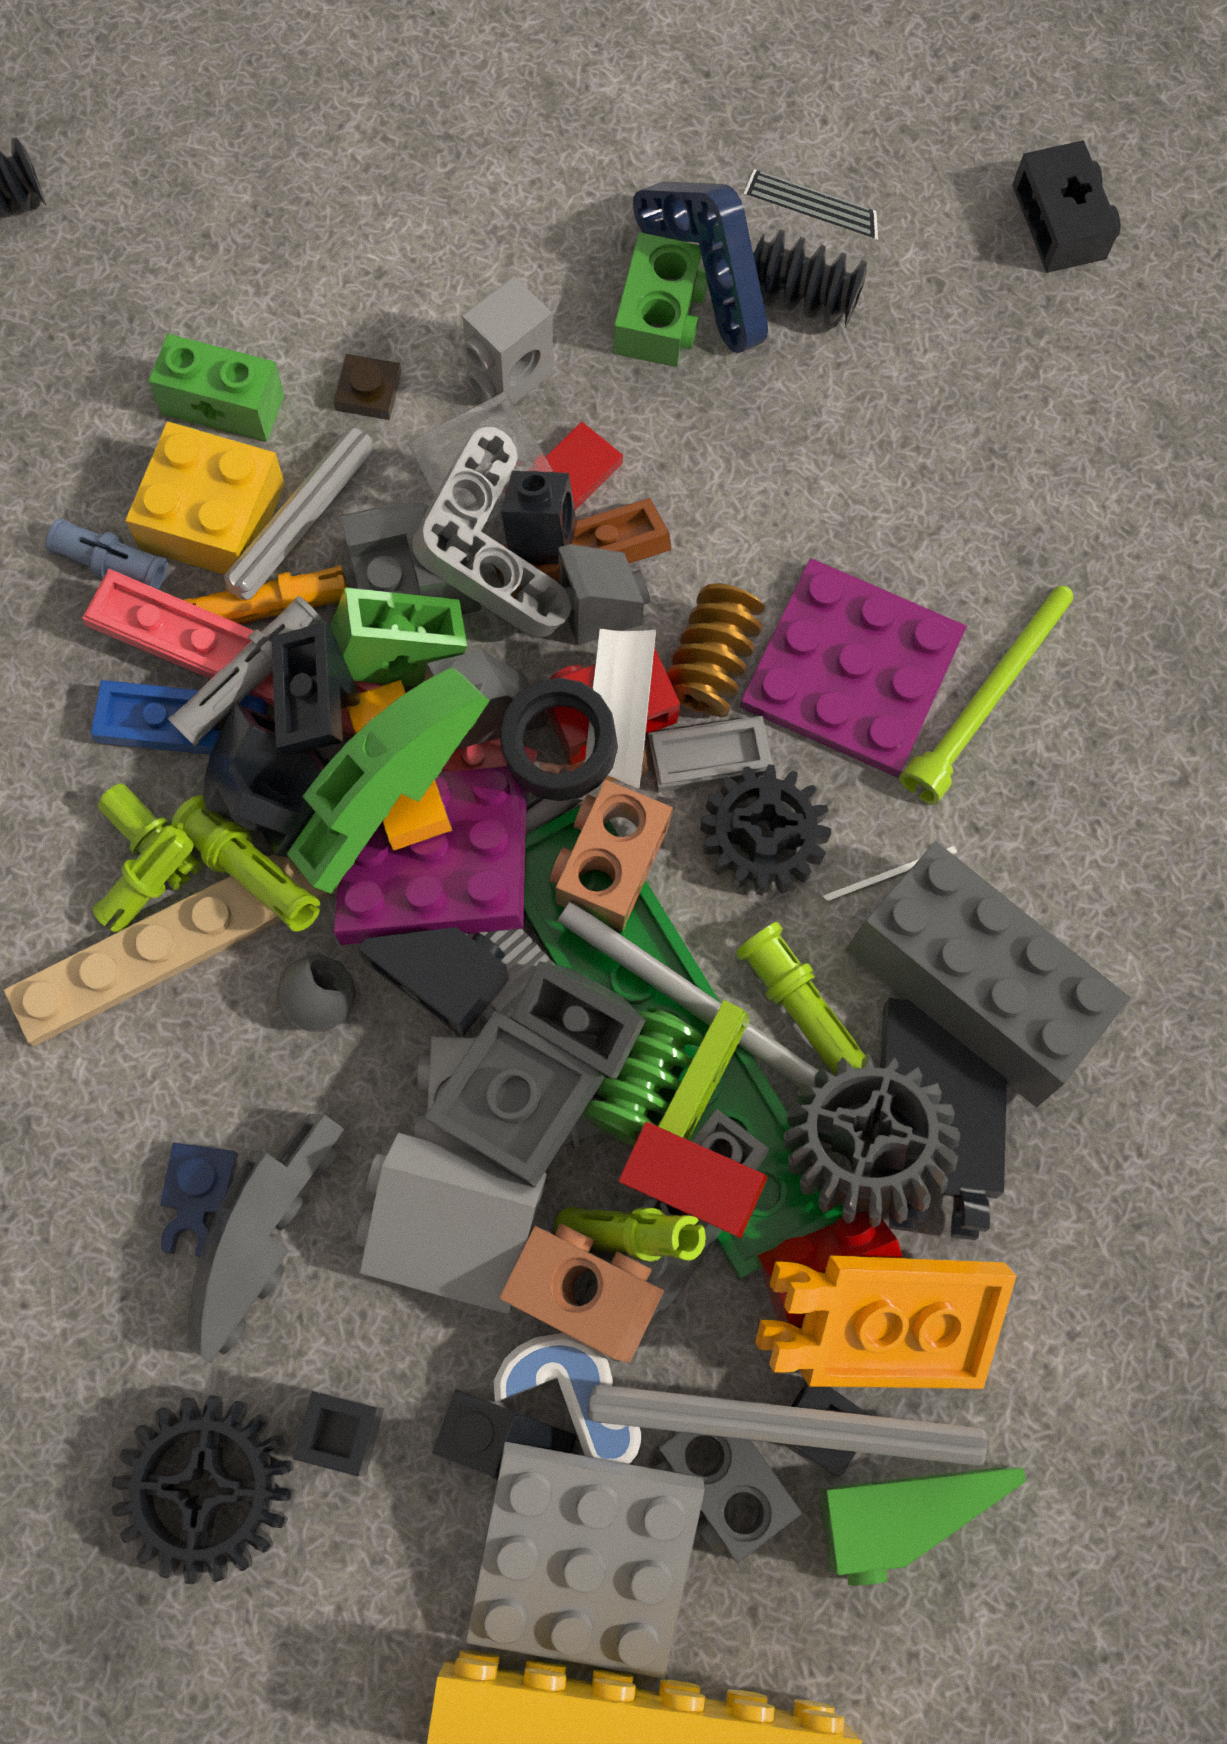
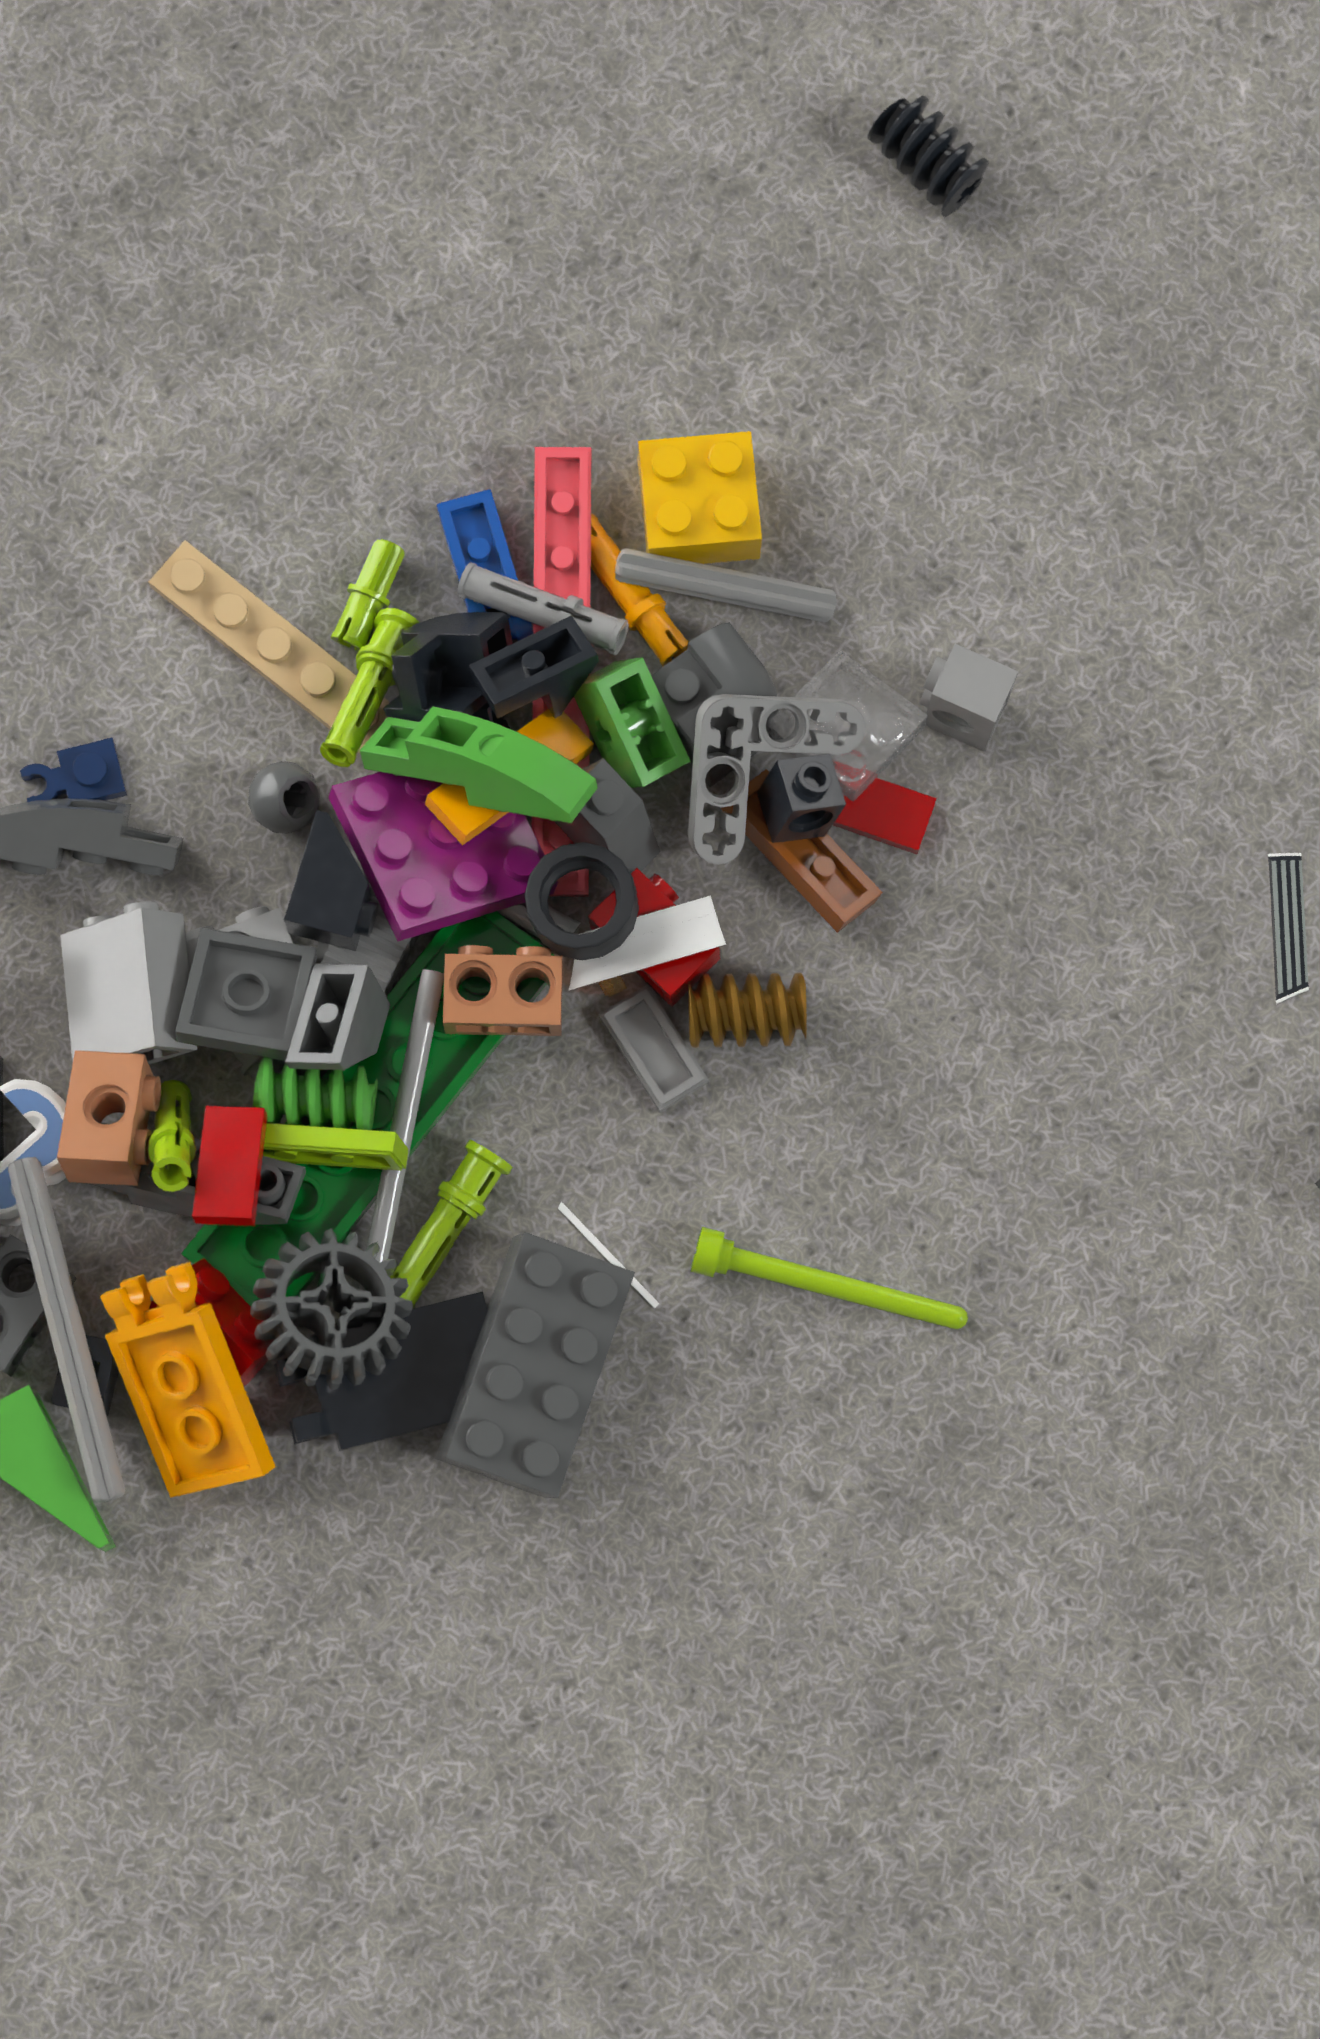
camera: 70 degrees right, 5 degrees up
(105, 553) = (614, 403): sand blue pin -> none
(143, 878) = (323, 608): lime axle -> none
(217, 387) = (817, 457): bright green brick -> none
(367, 386) = (888, 589): dark brown plate -> none
(600, 591) = (758, 883): dark grey slope -> none
(653, 300) = (1091, 805): bright green brick -> none
(717, 221) = (1174, 832): dark blue beam -> none
(742, 828) = (621, 1113): black gear -> none
(808, 278) = (1180, 946): black piece -> none
(853, 667) = (797, 1146): magenta plate -> none

